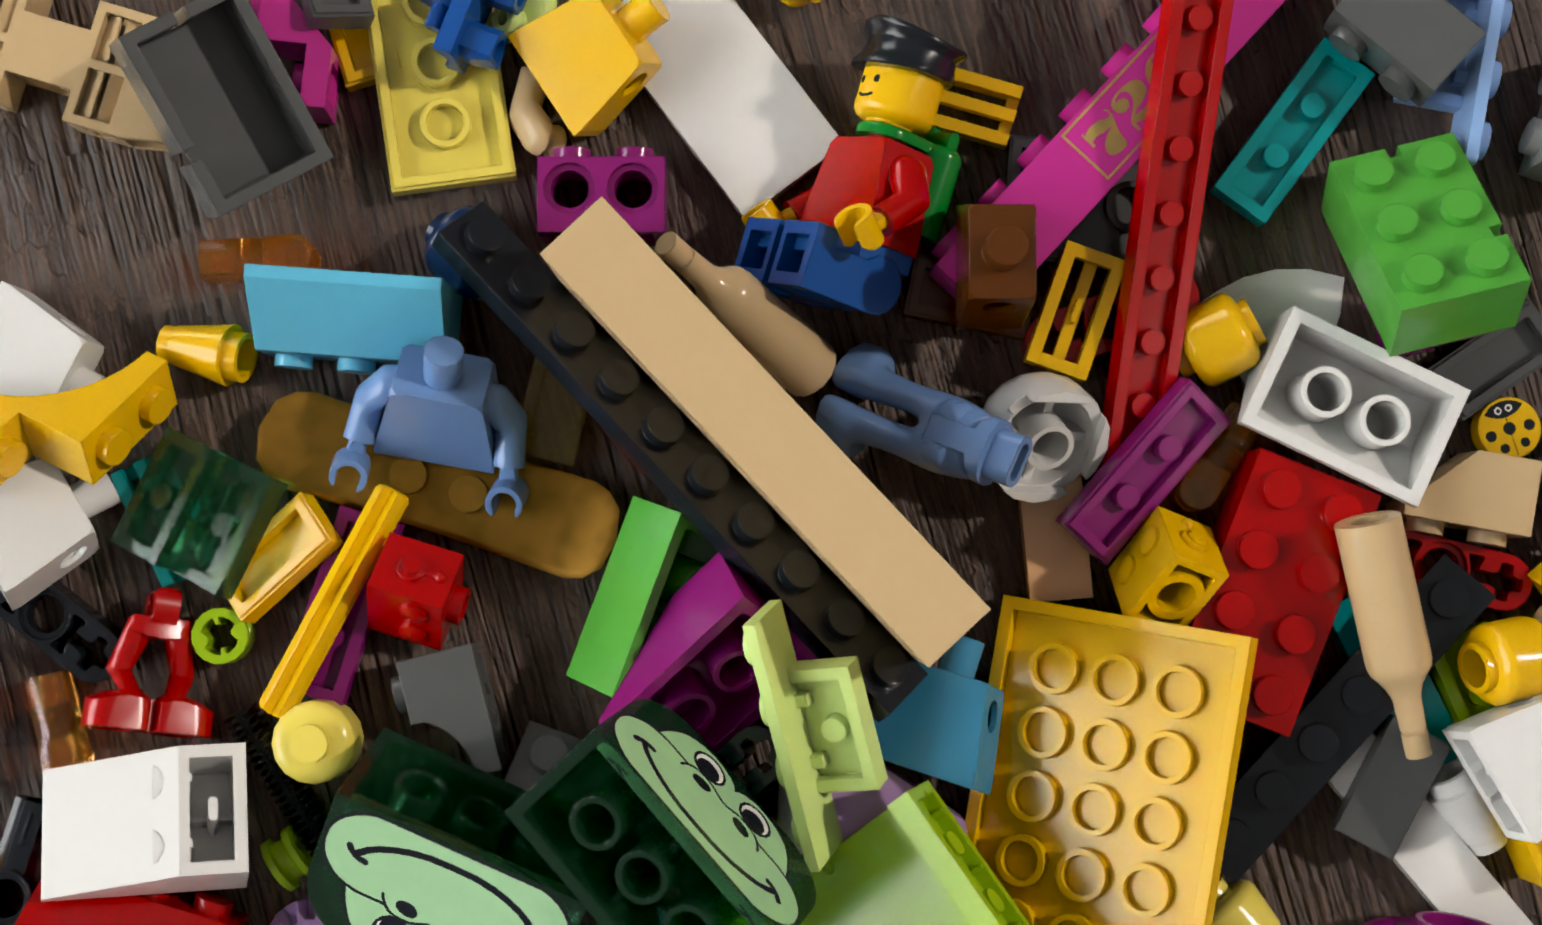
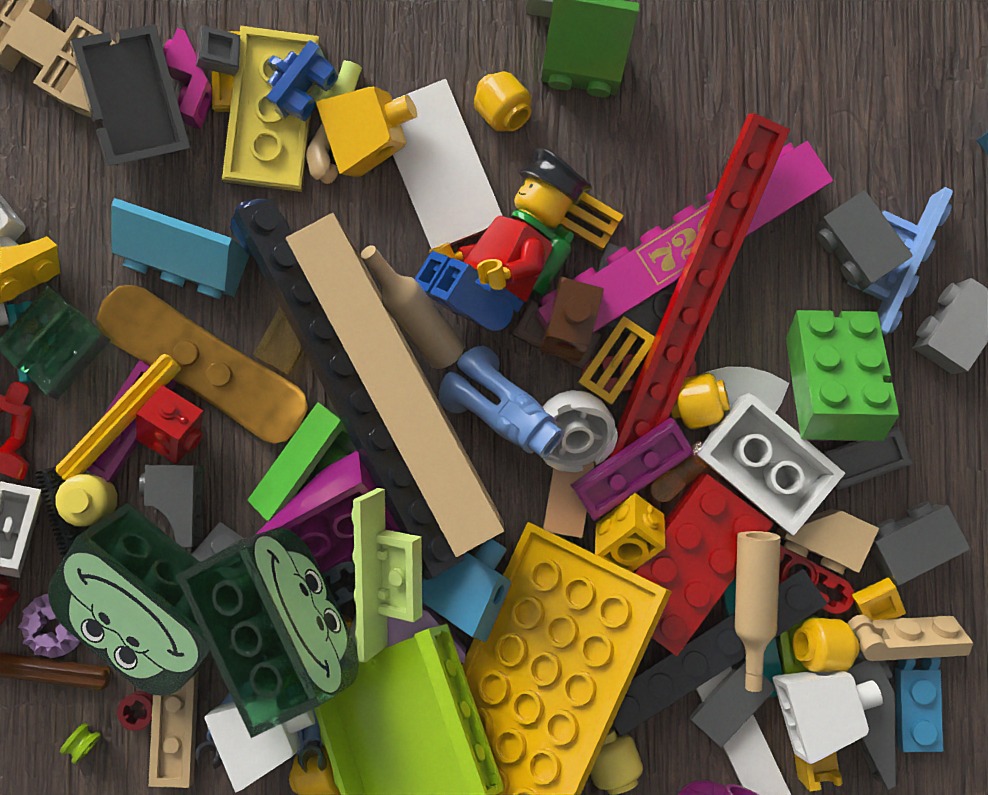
camera: 15 degrees right, 0 degrees up
(204, 640) = (36, 420): lime bush -> none
(211, 351) = (86, 246): yellow cone -> none
(224, 259) = (145, 197): clear orange bar -> none
(287, 858) = (47, 564): lime bush -> none
(288, 552) = (100, 380): yellow tile -> none
(440, 412) = (214, 320): medium blue torso -> none
(604, 178) = (352, 207): magenta brick -> none
(1291, 133) = (779, 286): teal plate -> none
(1465, 810) = (774, 729): white cone -> none
(1506, 427) = (863, 501): yellow tile -> none

